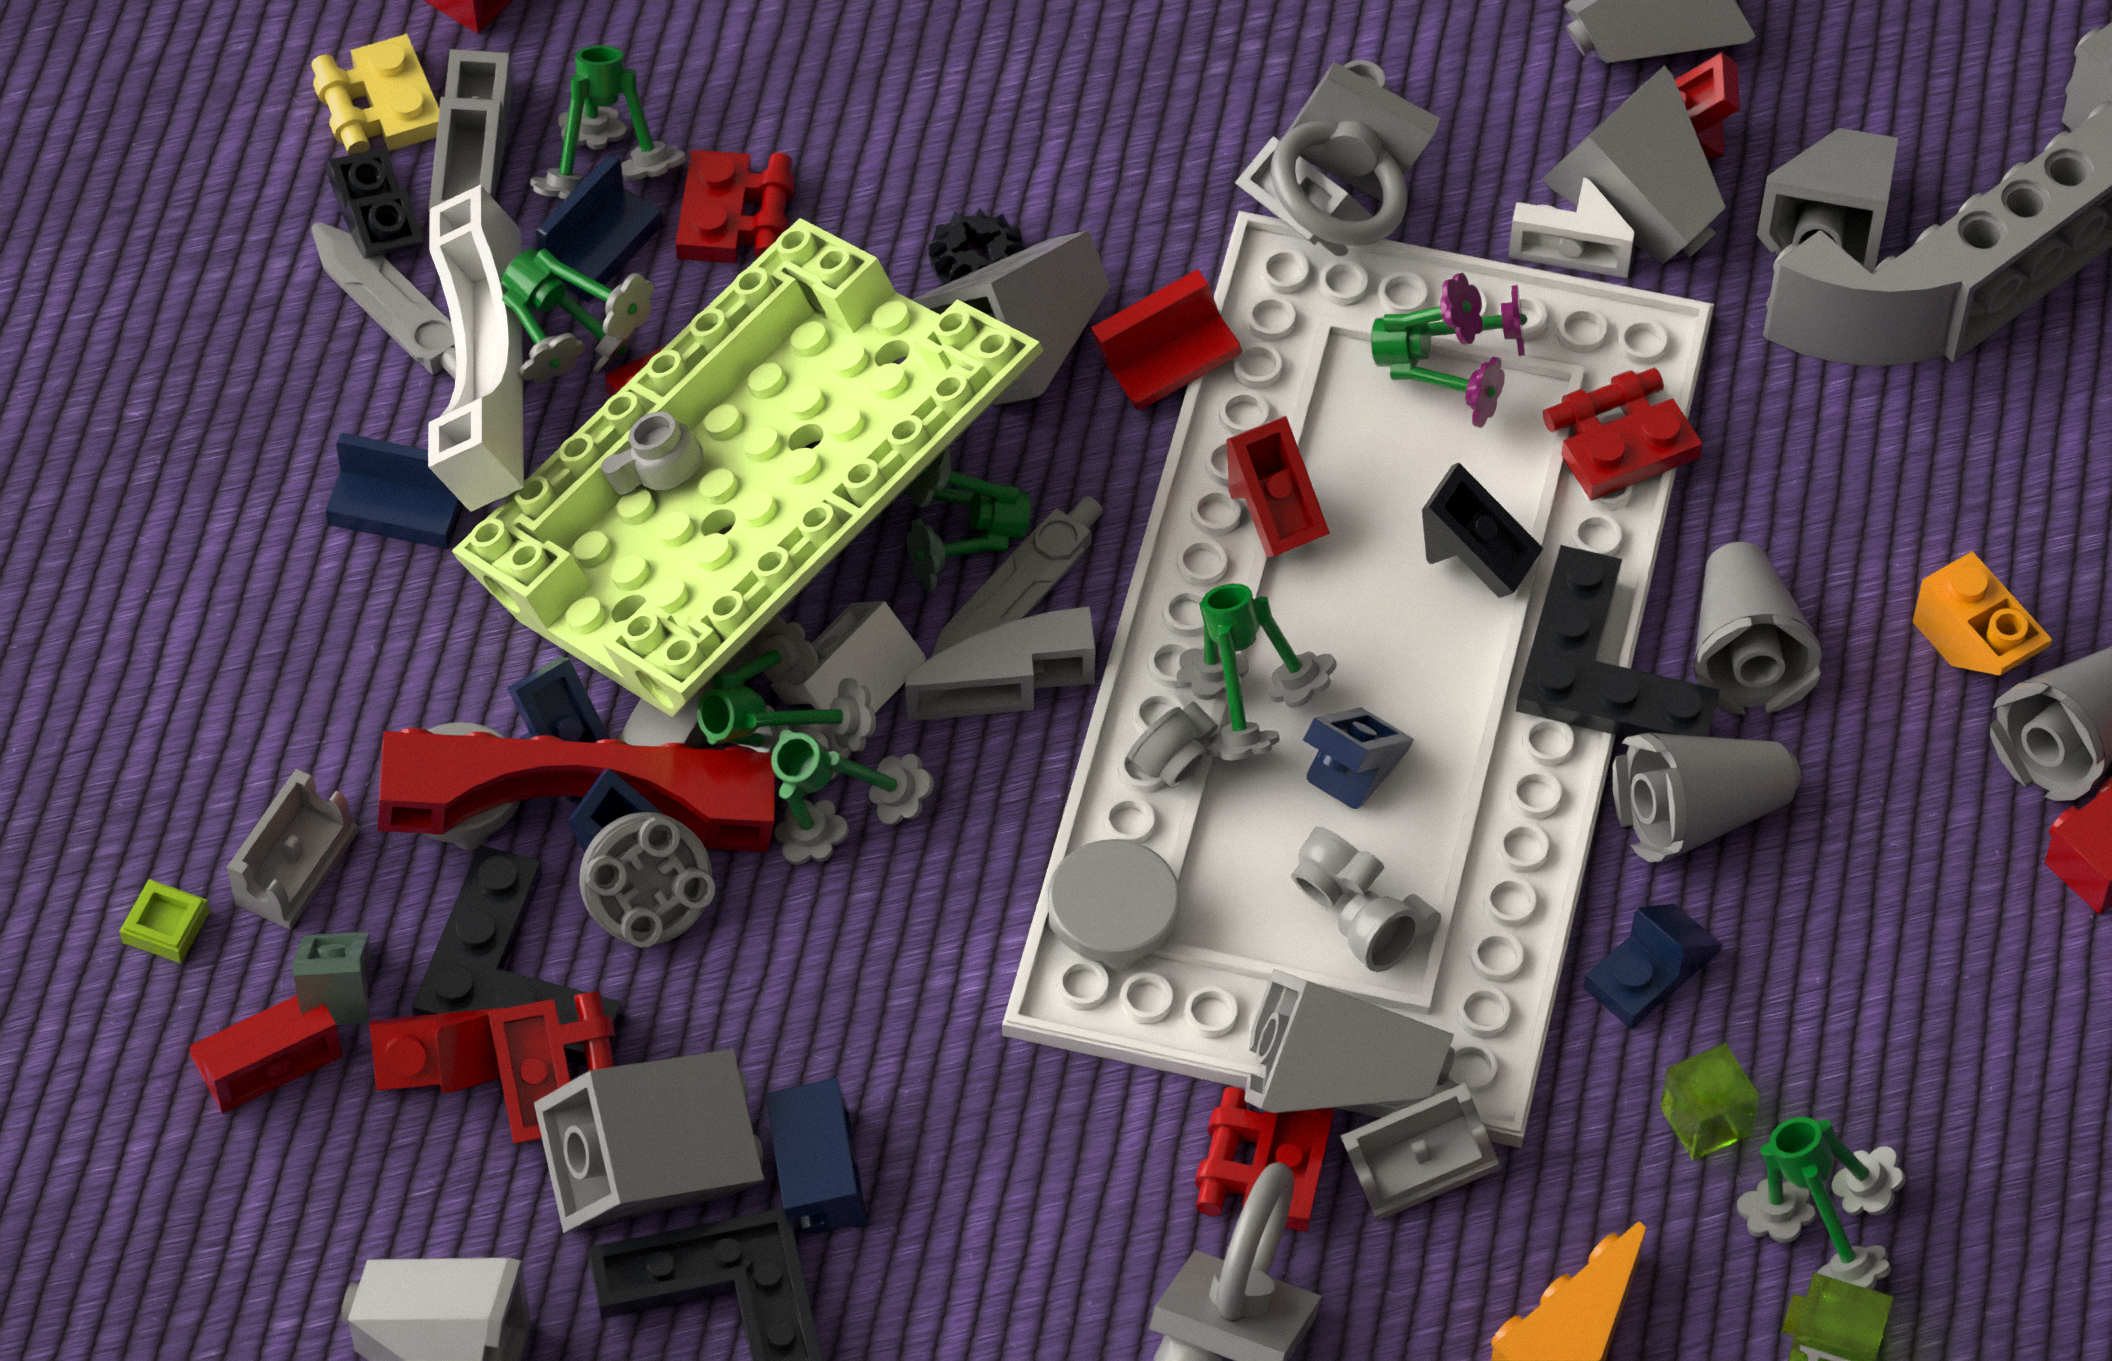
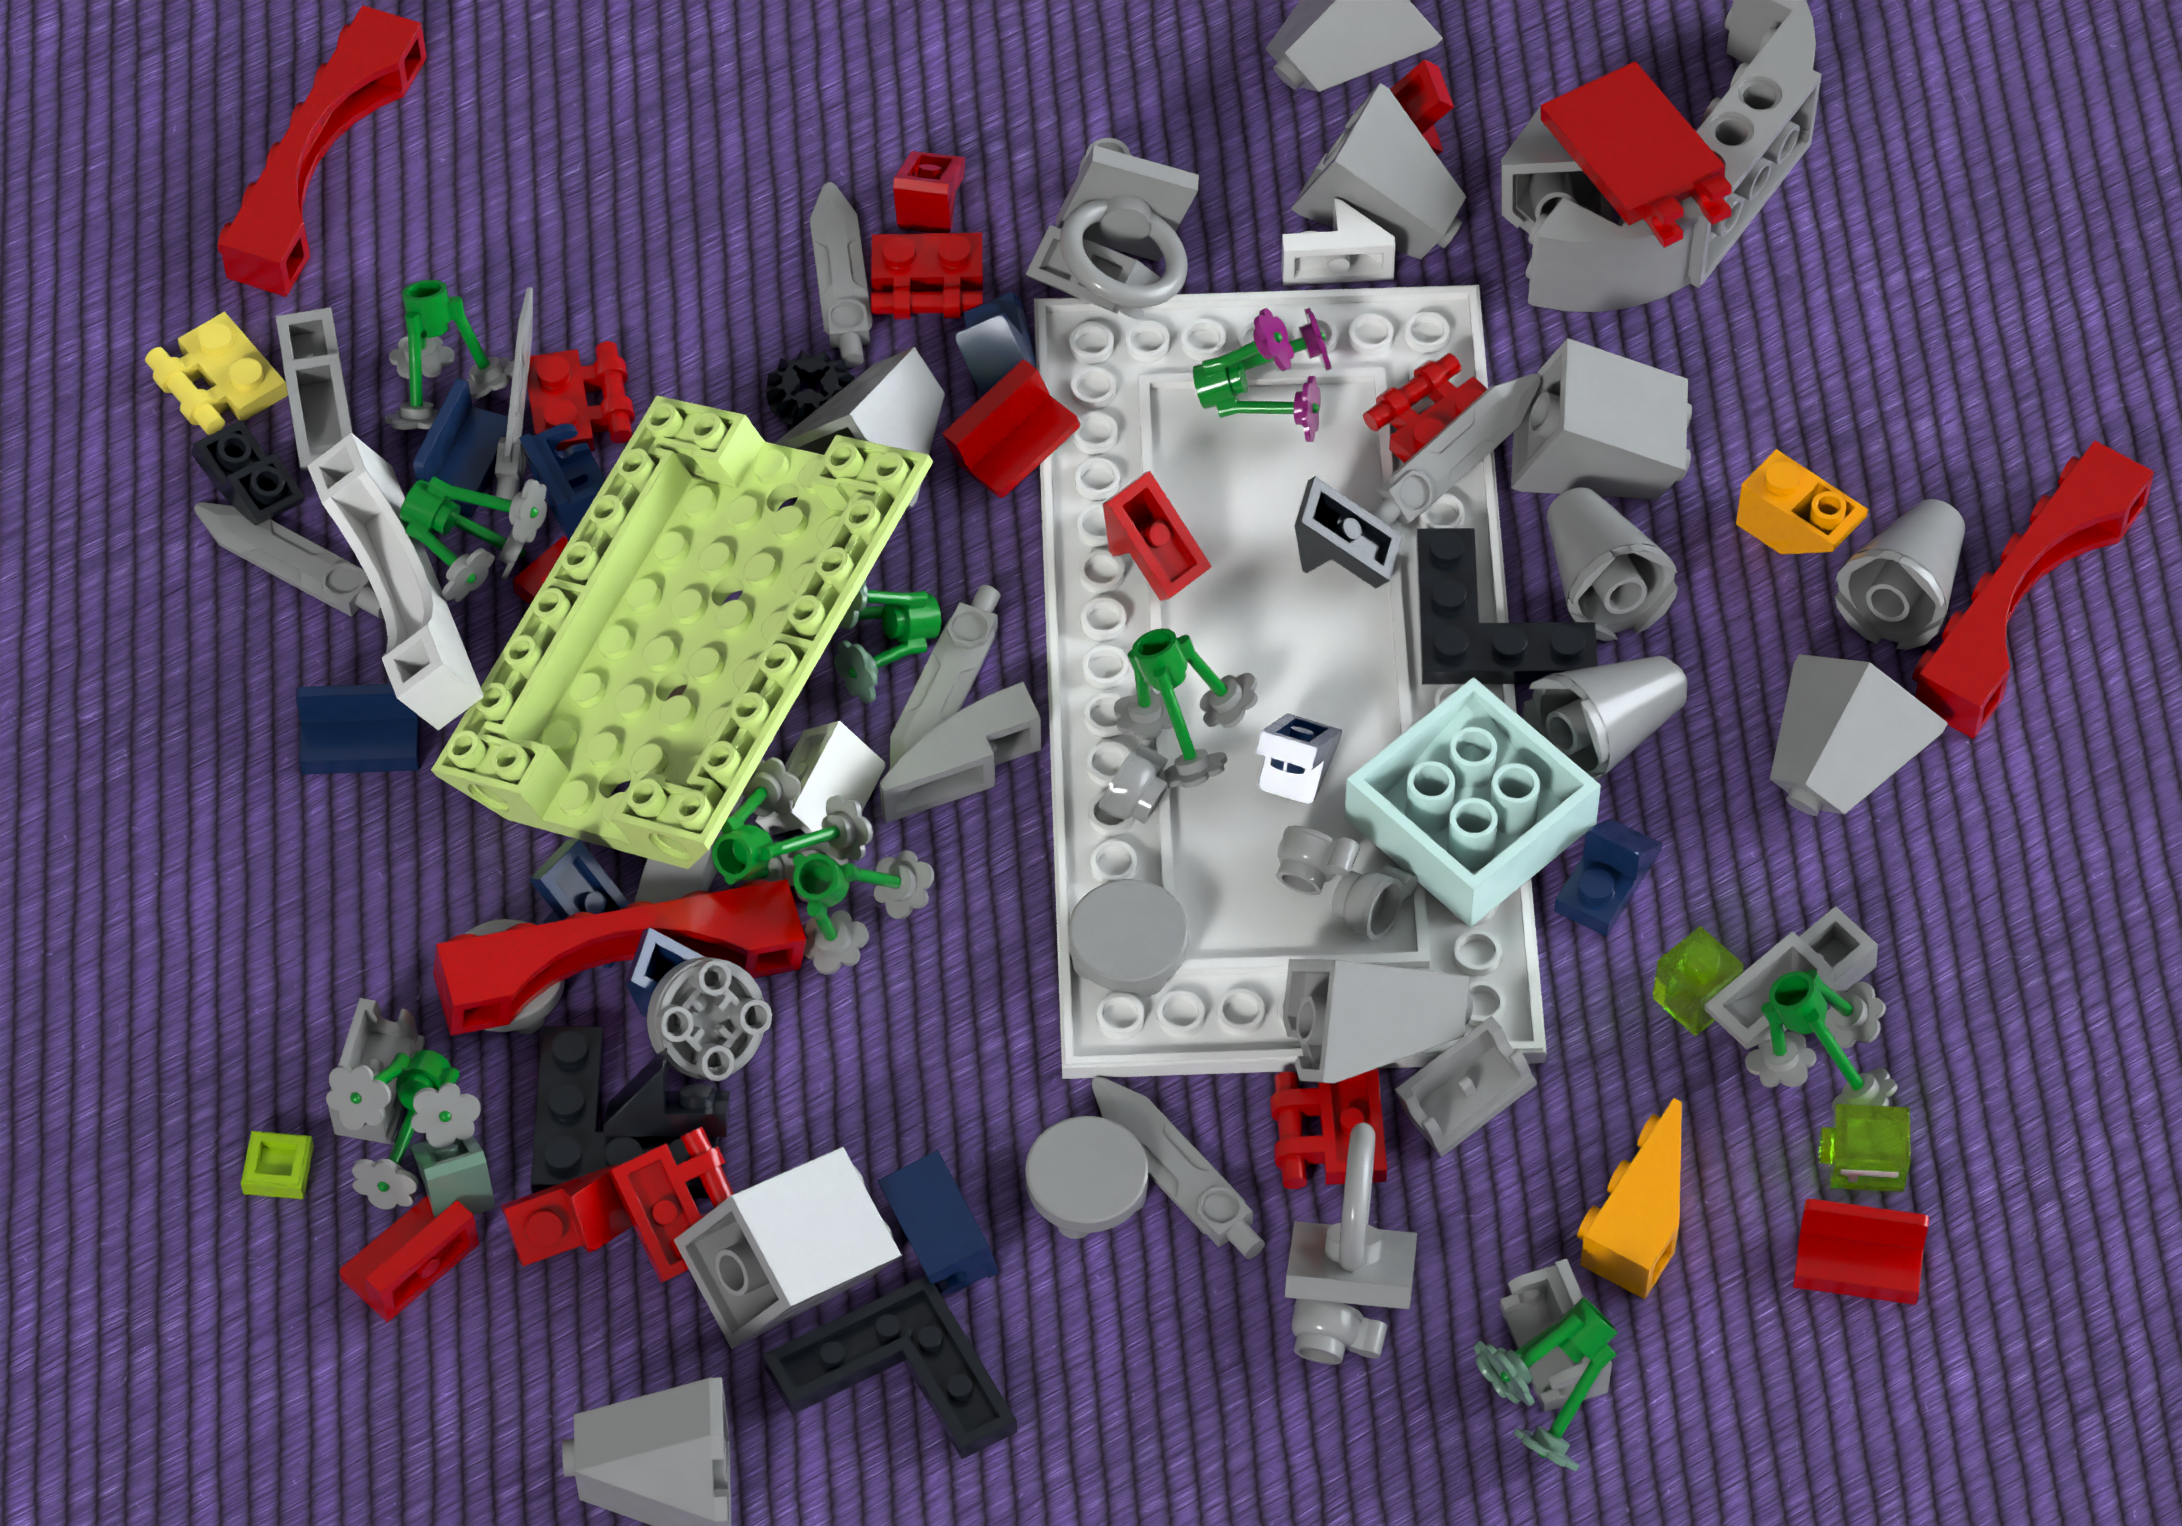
camera: 15 degrees left, 0 degrees up
(333, 905) = (433, 1105): none -> light grey plant
(564, 962) = (651, 1110): none -> black slope
(647, 241) = (510, 454): none -> light grey piece
(660, 456) = (599, 640): light grey piece -> none
(687, 278) = (569, 475): none -> dark blue hinge
(990, 1144) = (1086, 1175): none -> light grey tile
(1048, 140) = (841, 274): none -> light grey piece
(1091, 1160) = (1181, 1169): none -> light grey piece
(1141, 149) = (926, 263): none -> red plate
(1160, 71) = (926, 191): none -> red slope
(1182, 242) = (995, 340): none -> dark blue slope
(1521, 848) = (1472, 801): none -> light aqua slope
(1627, 471) = (1455, 450): none -> light grey piece
(1795, 483) = (1602, 427): none -> light grey slope
(1863, 1107) = (1830, 946): none -> light grey slope
(1916, 199) = (1639, 151): none -> red tile
(1954, 875) = (1845, 733): none -> light grey slope

